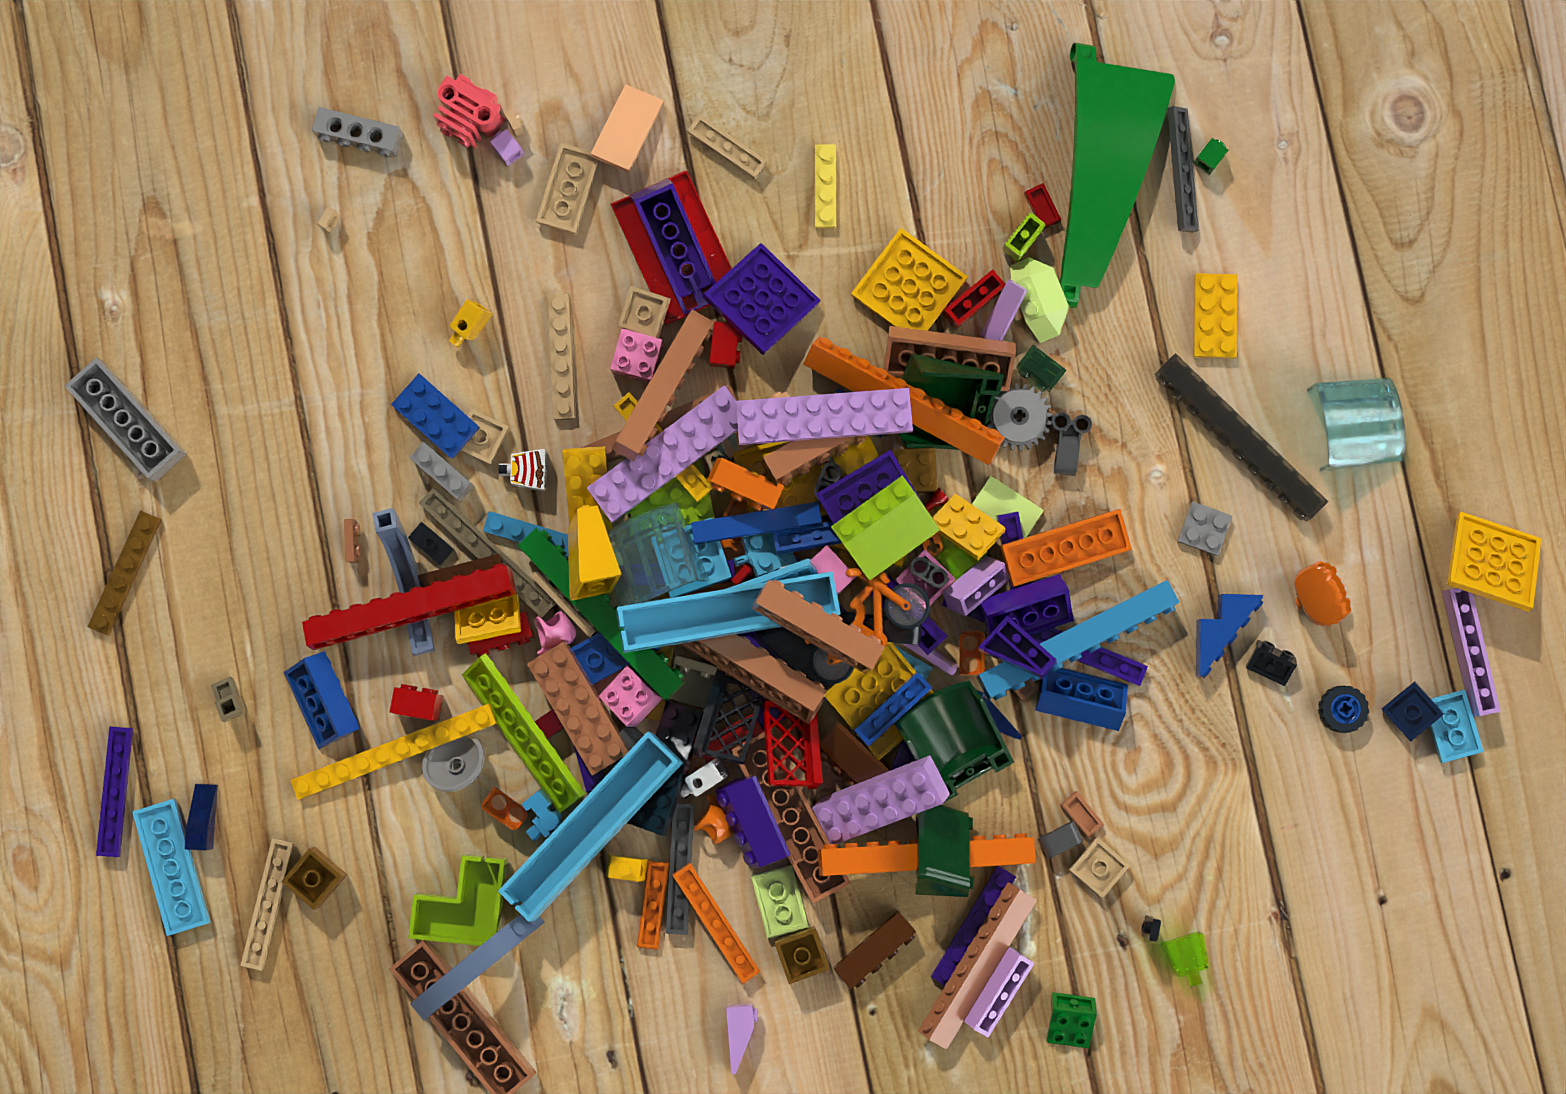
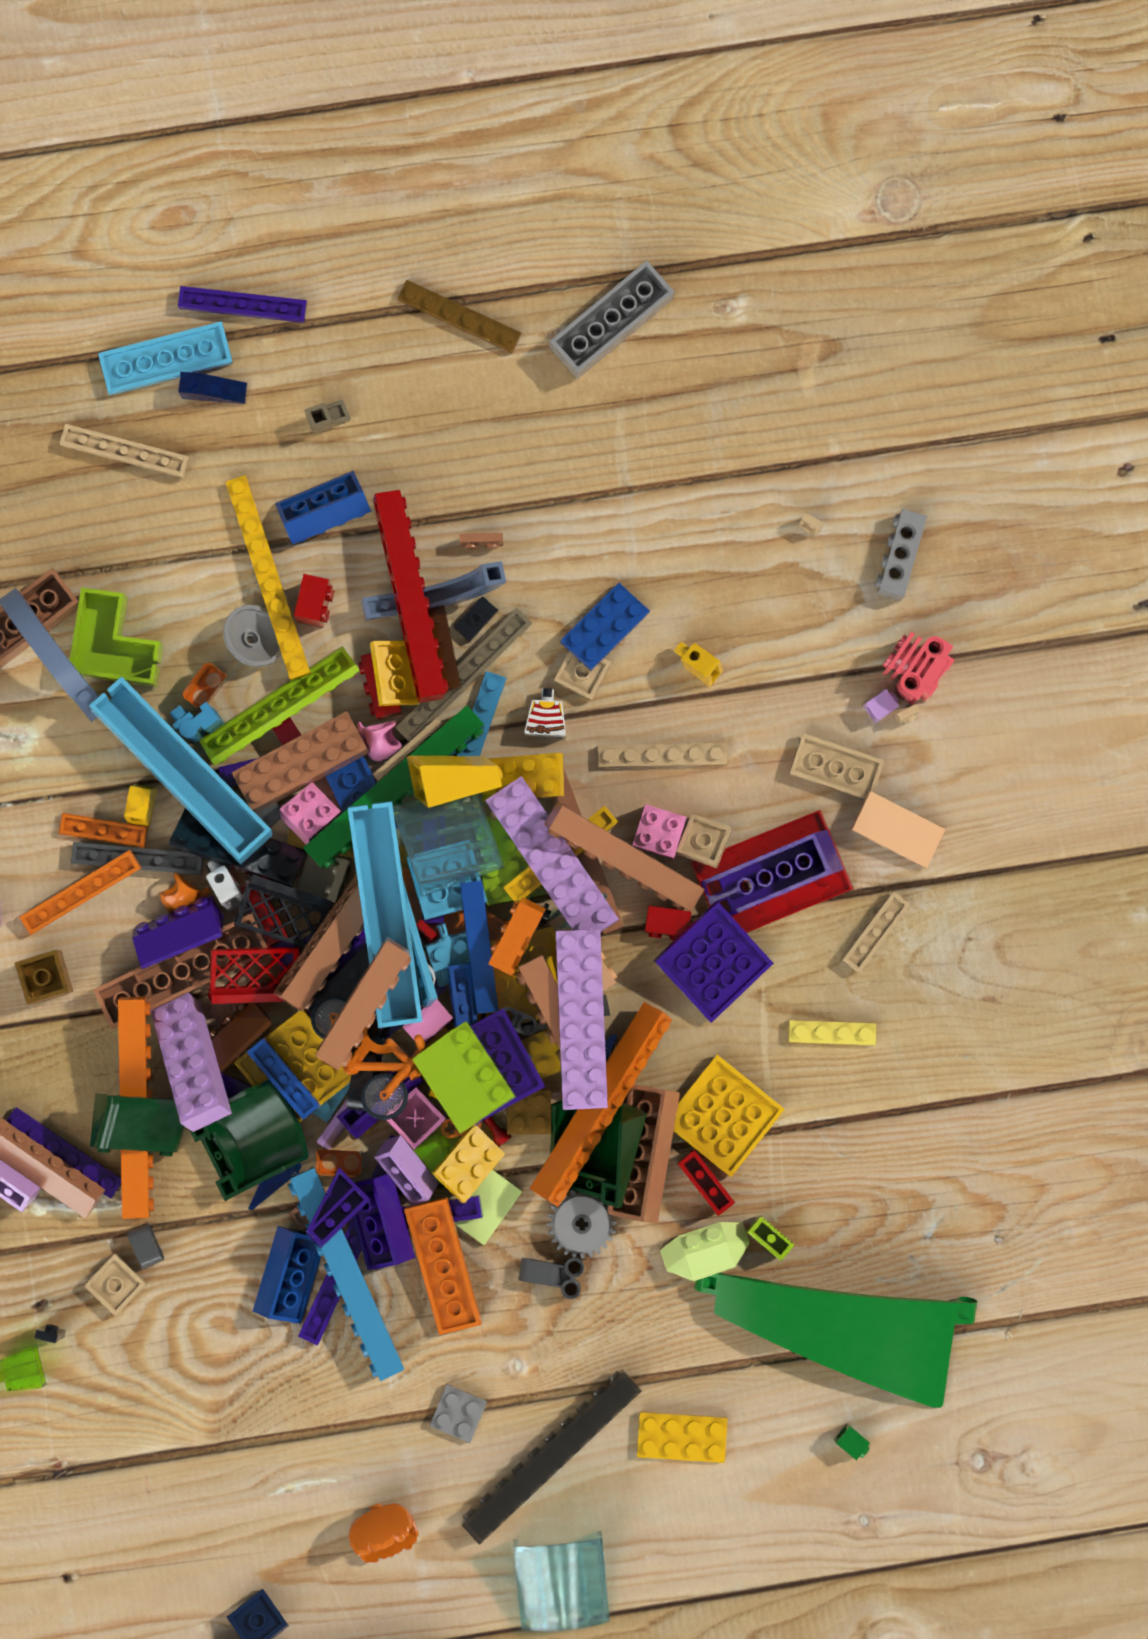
camera: 85 degrees right, 0 degrees up
(314, 878) = (146, 496): pearl gold brick -> none
(442, 471) = (547, 631): light grey brick -> none
(779, 901) = (99, 957): yellowish green tile -> none
(874, 950) = (45, 1051): reddish brown brick -> none
(930, 569) = (422, 1122): dark grey beam -> none
(1004, 311) = (691, 1212): lavender tile -> none
(1040, 369) = (631, 1249): clear green brick -> none
(1042, 205) = (804, 1260): red tile -> none
(1082, 814) = (170, 1269): nougat tile -> none
(1182, 169) = (838, 1410): dark grey plate -> none
(1214, 634) = (347, 1417): blue slope -> none
(1272, 662) = (316, 1476): black bracket -> none
(1343, 709) = (264, 1548): black wheel -> none

